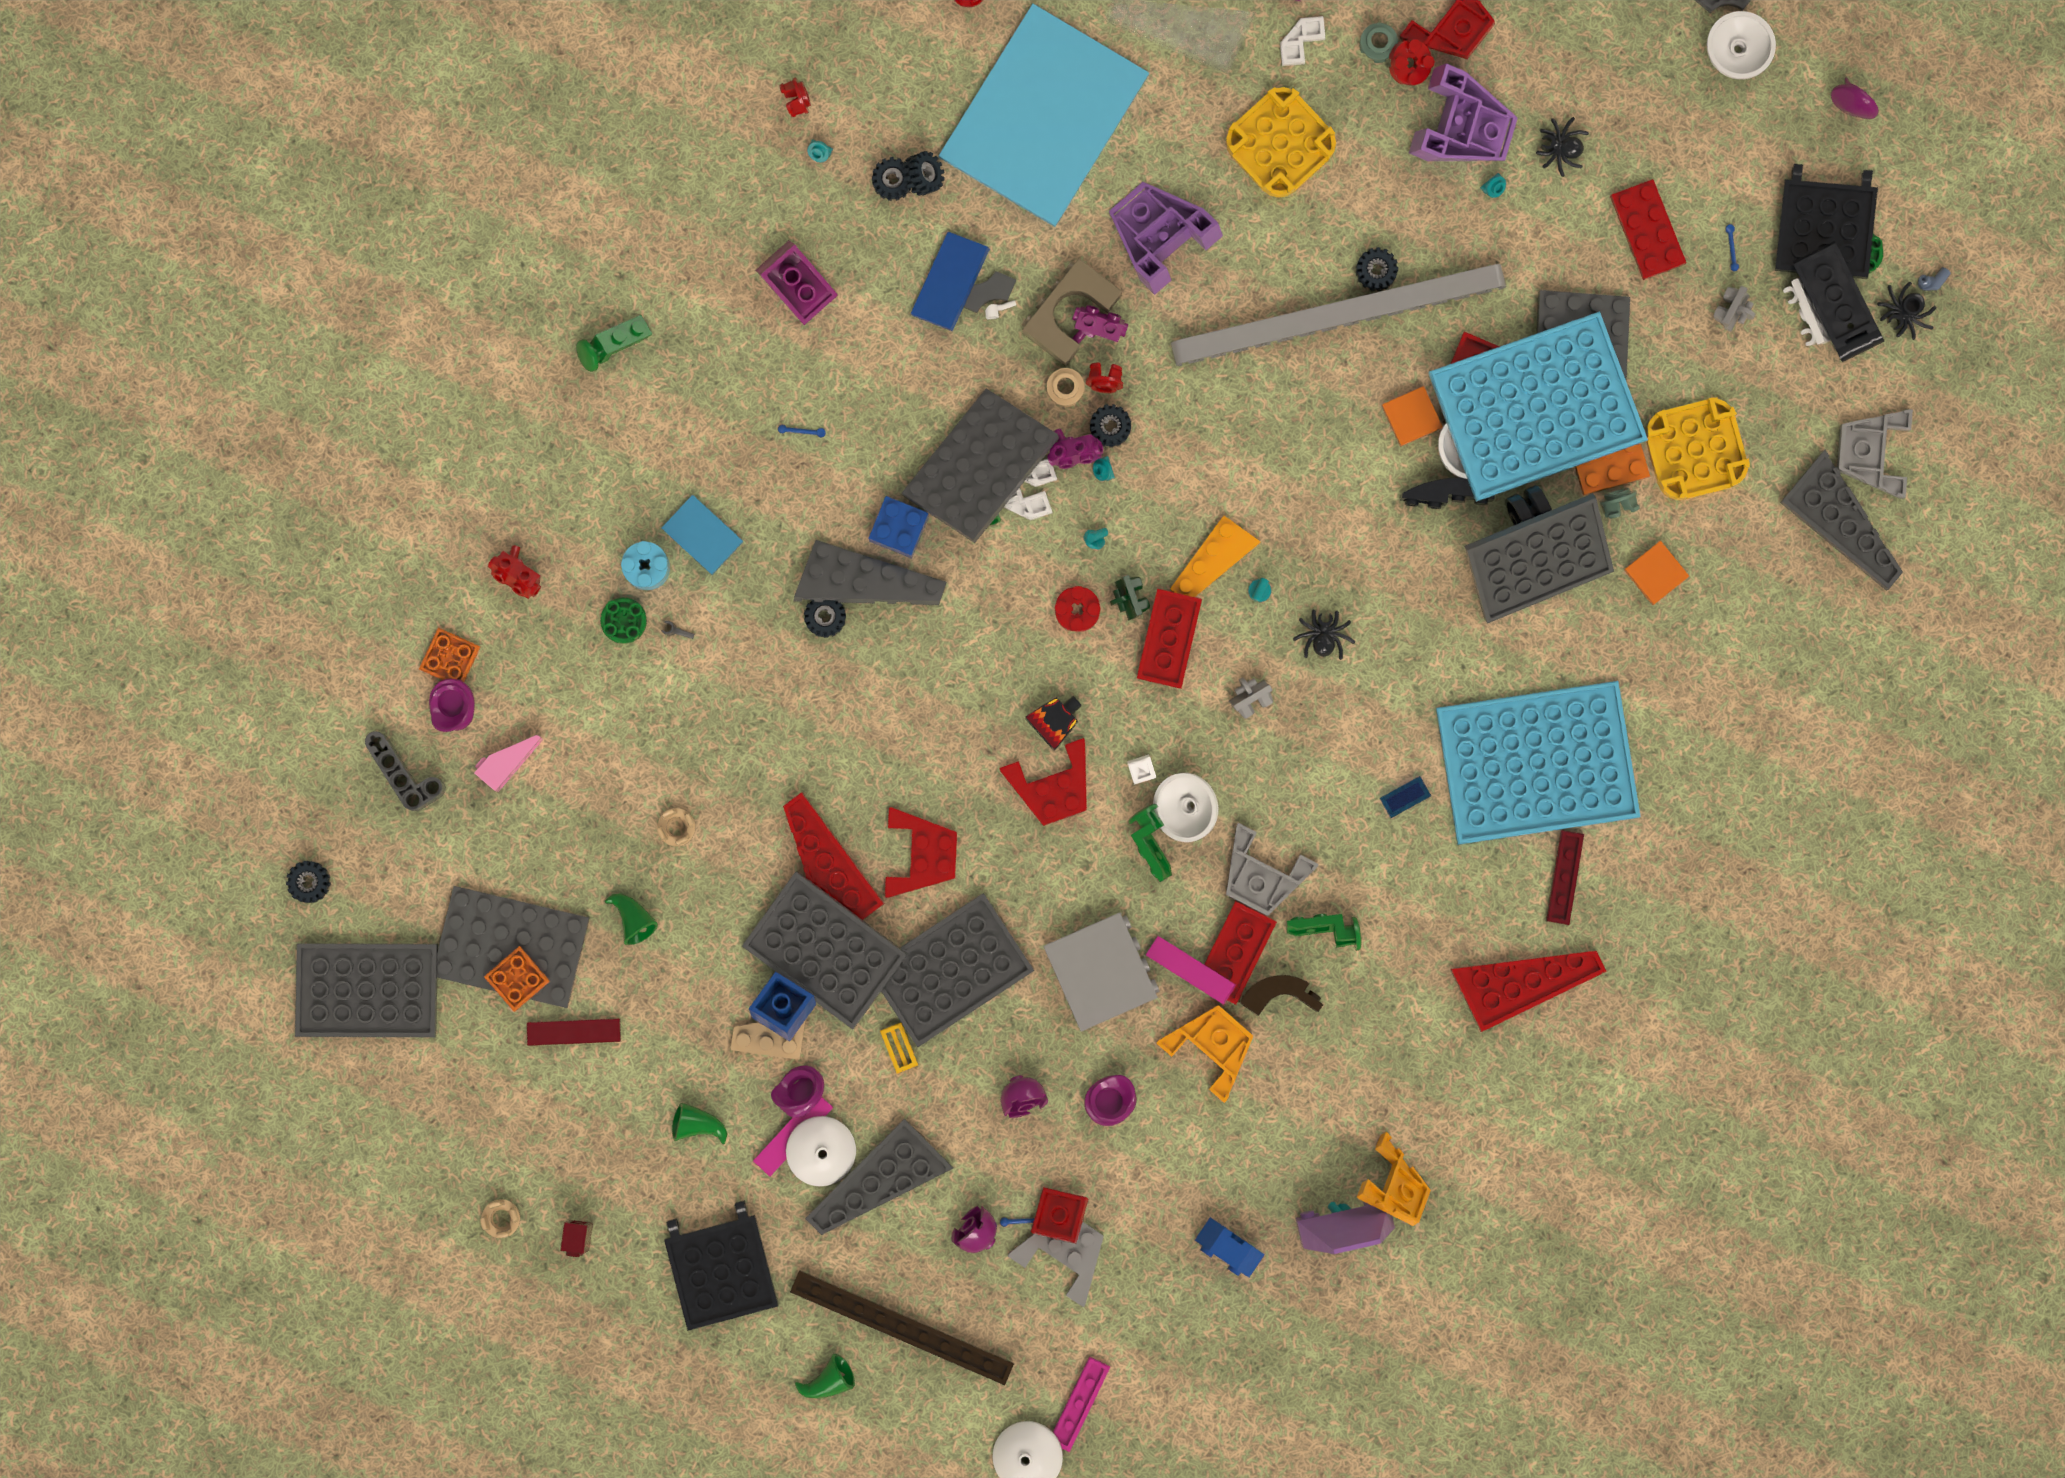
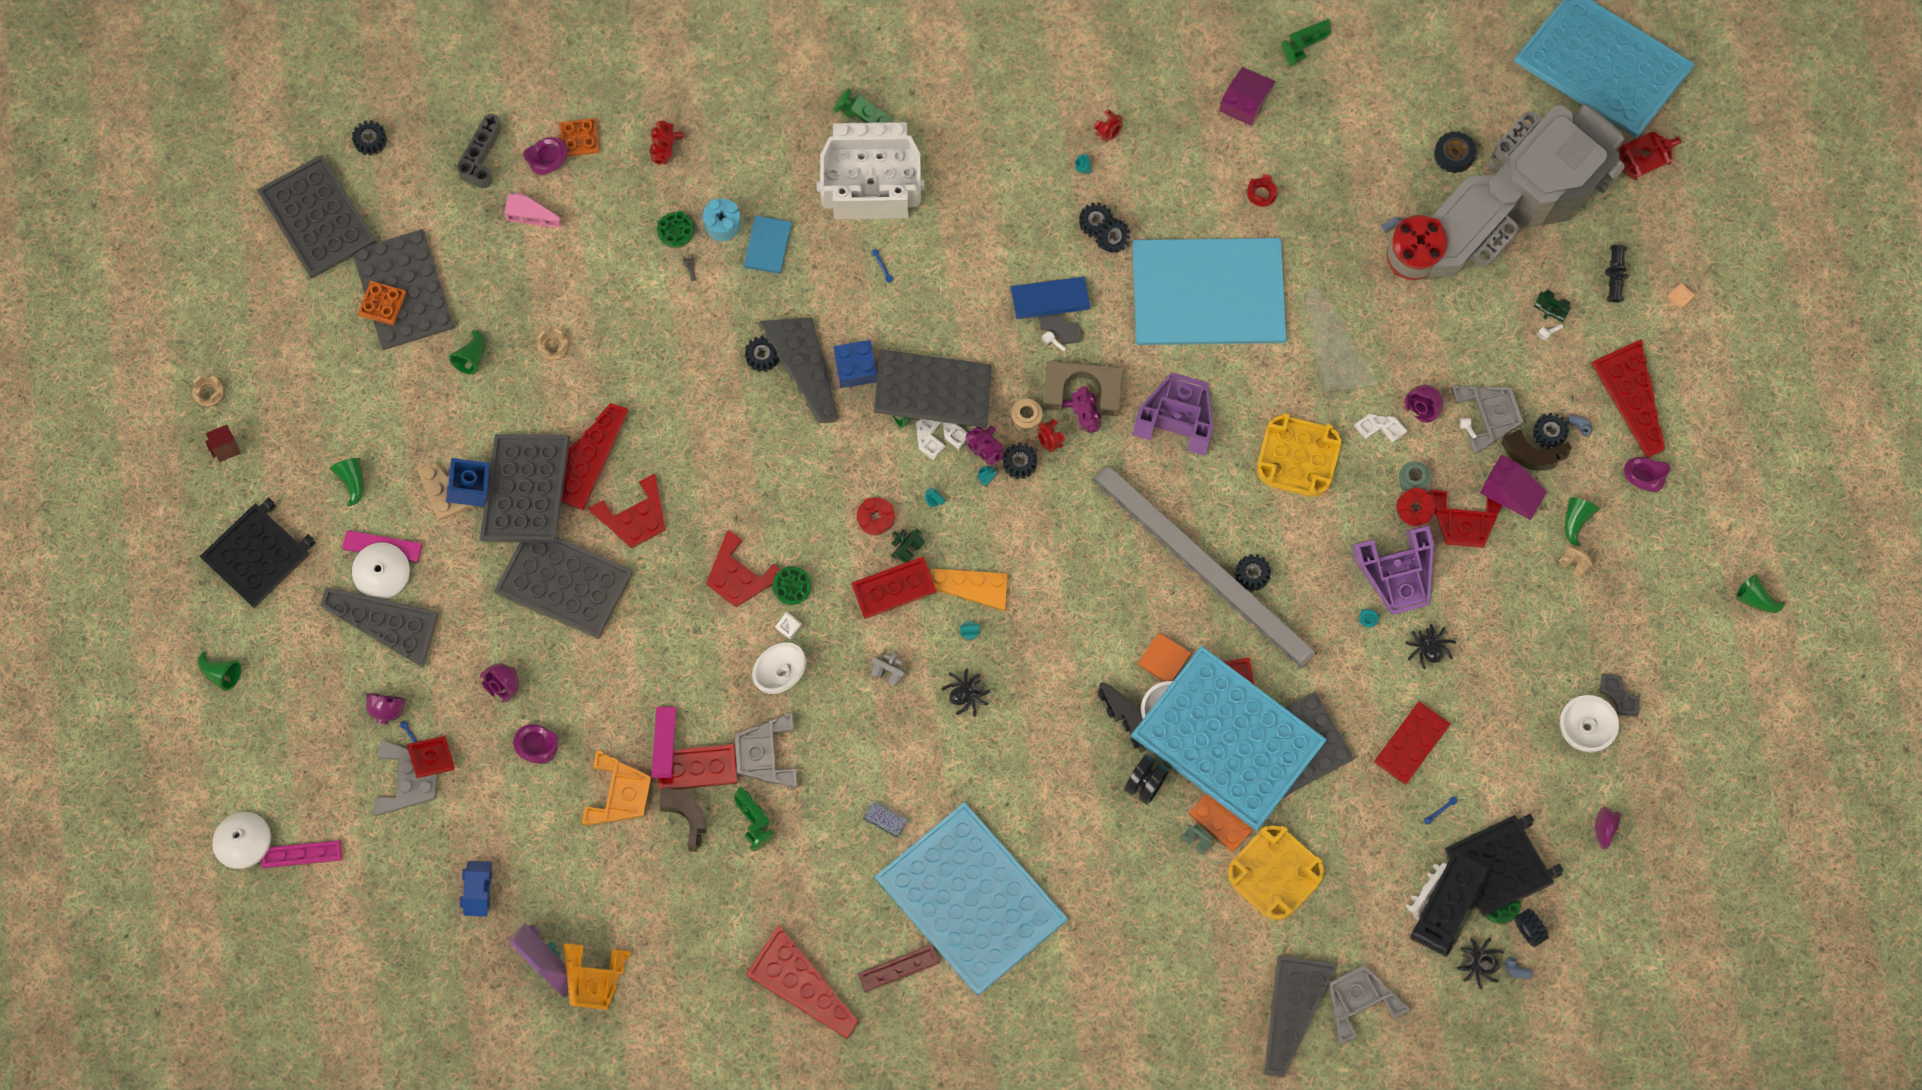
camera: 60 degrees right, 15 degrees down
(573, 1032) = (368, 363): dark red tile -> none
(708, 354) = (846, 177): none -> white piece
(796, 282) = (982, 201): magenta slope -> none
(802, 1096) = (408, 530): magenta piece -> none
(892, 1029) = (477, 593): yellow tile -> none
(902, 1327) = (285, 699): dark brown plate -> none
(1054, 720) = (785, 546): torso -> none
(1100, 740) = (791, 585): none -> green tile
(1101, 971) = (625, 682): light grey panel -> none
(1146, 843) = (737, 659): green piece -> none
(1539, 558) = (1117, 802): dark grey plate -> none
(1656, 573) = (1165, 898): orange tile -> none
(1729, 316) = (1396, 838): light grey hips -> none
(1907, 239) = (1531, 927): none -> black bush

